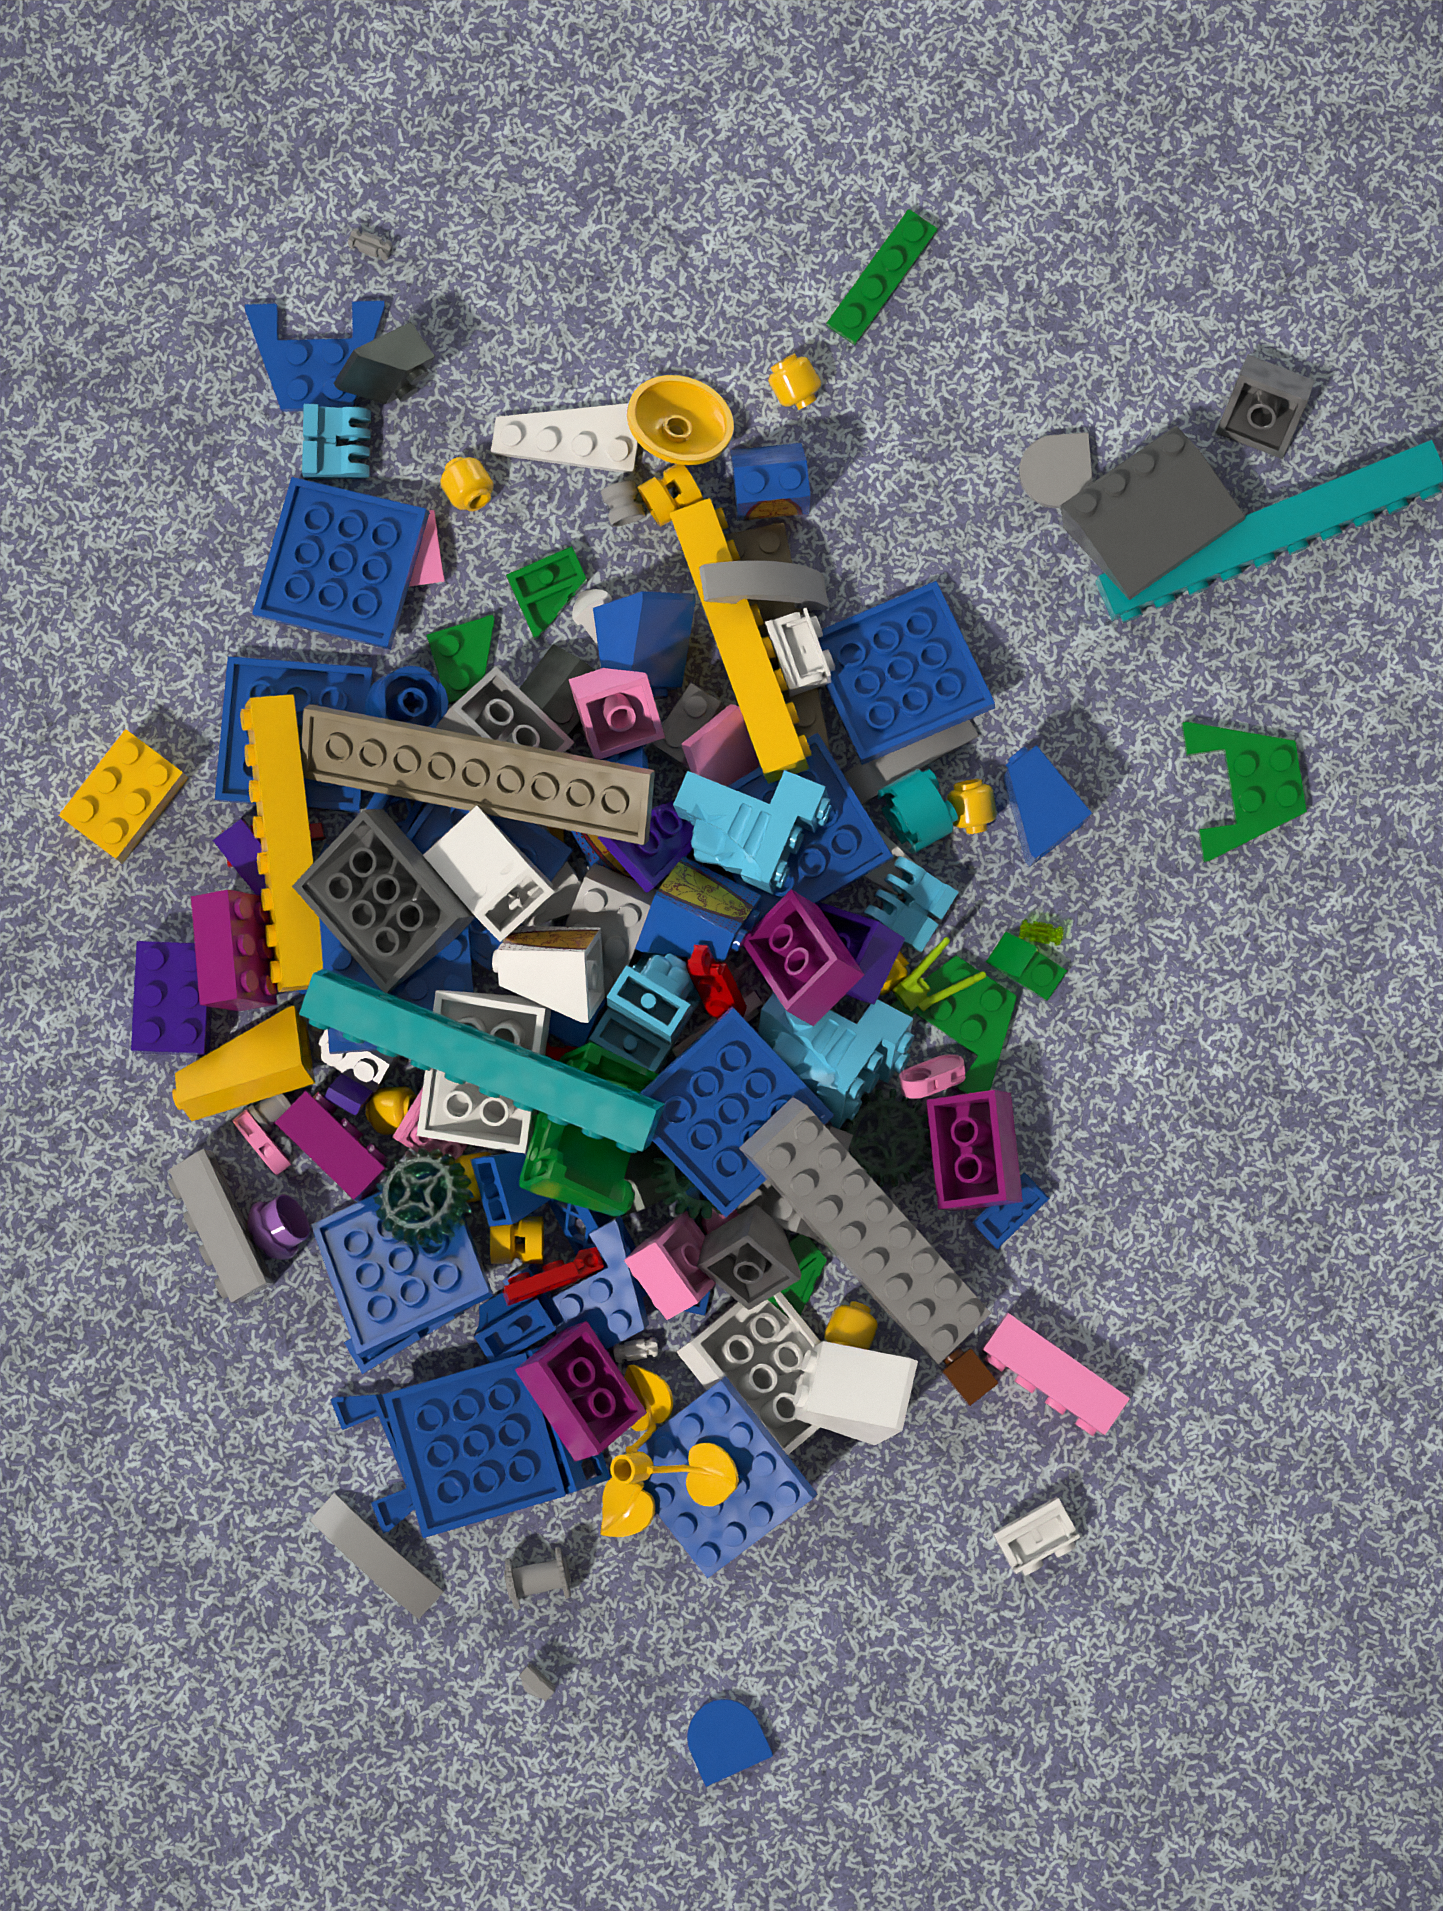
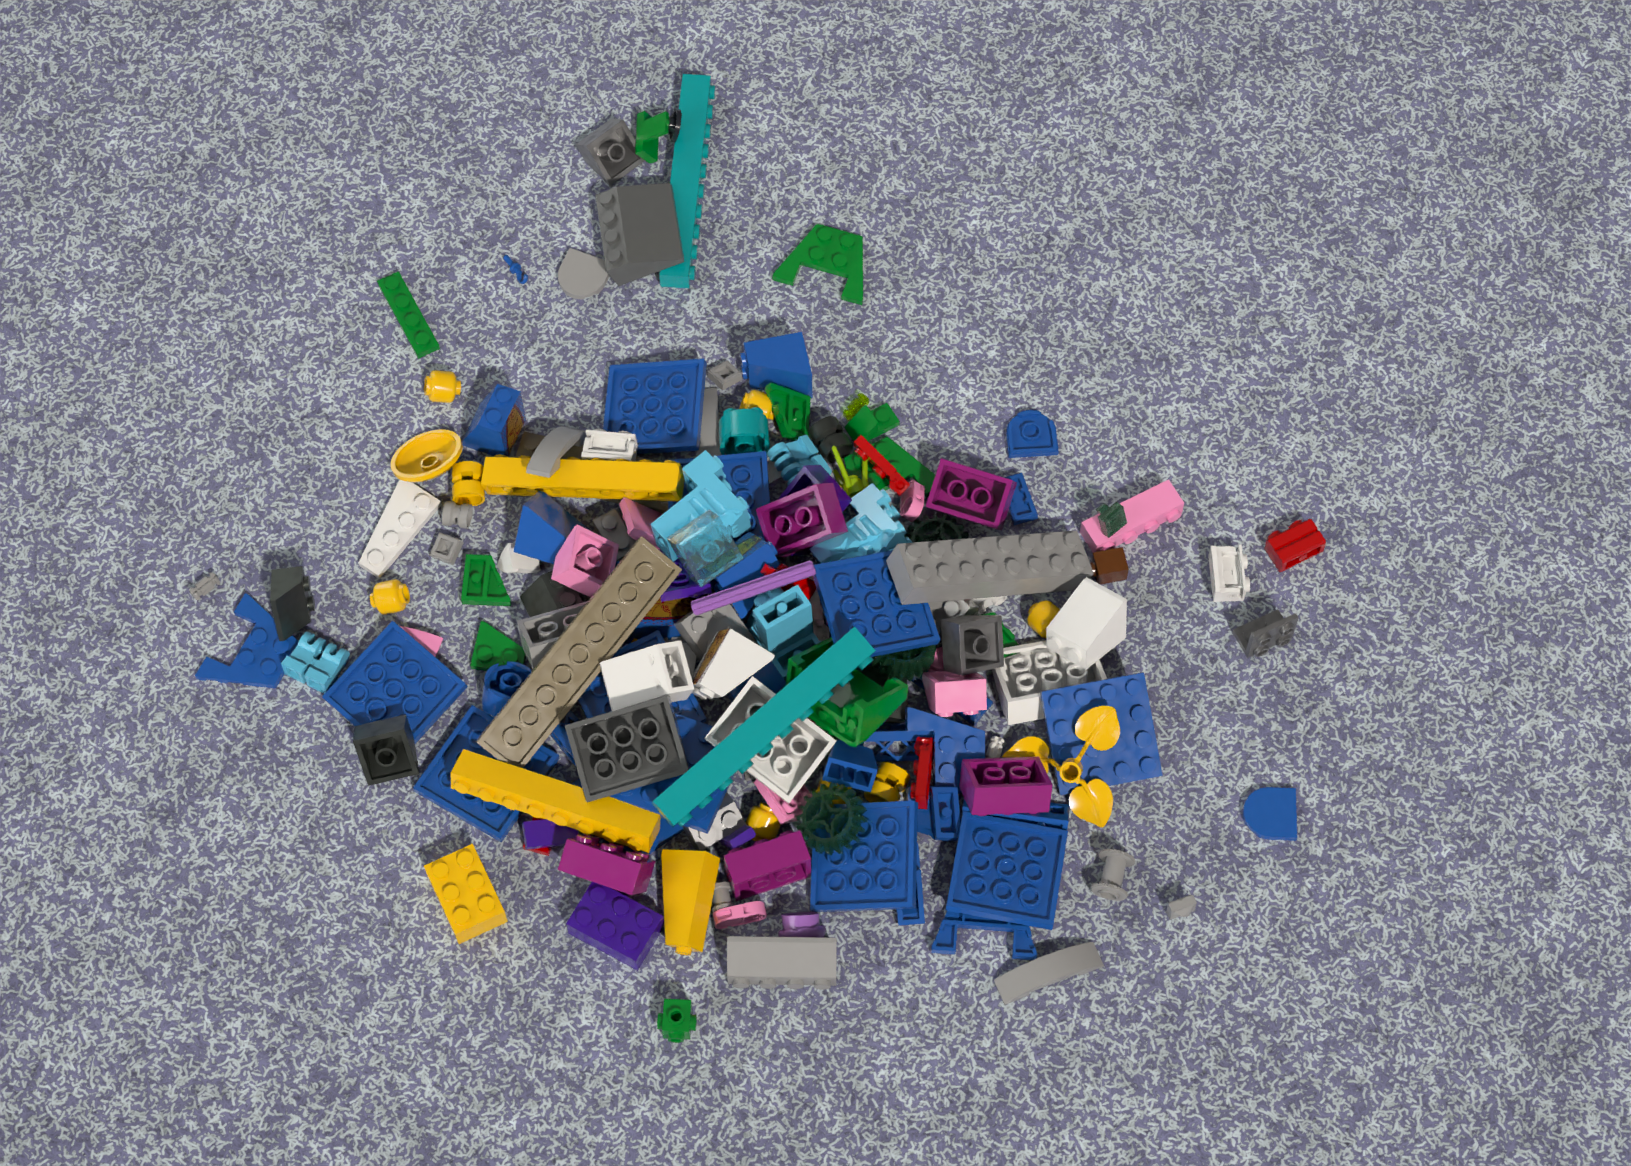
camera: 65 degrees left, 20 degrees down
(101, 1136) = (677, 1020): none -> green brick
(254, 597) = (386, 749): none -> pearl dark grey slope
(570, 515) = (446, 548): none -> light grey tile
(665, 948) = (753, 588): none -> medium lavender axle
(685, 859) = (705, 548): none -> clear light blue brick
(956, 1015) = (882, 467): none -> red hinge
(970, 925) = (829, 433): none -> pearl dark grey wheel
(975, 1620) = (1265, 632): none -> flat silver bracket
(984, 853) = (790, 410): none -> green wing
(1000, 737) = (724, 375): none -> light grey tile
(1021, 378) = (516, 268): none -> blue hand
(1024, 1351) = (1111, 518): none -> clear green tile
(1117, 1183) = (1031, 435): none -> blue tile
(1123, 1605) = (1294, 544): none -> red brick
(1321, 447) = (651, 128): none -> green piece

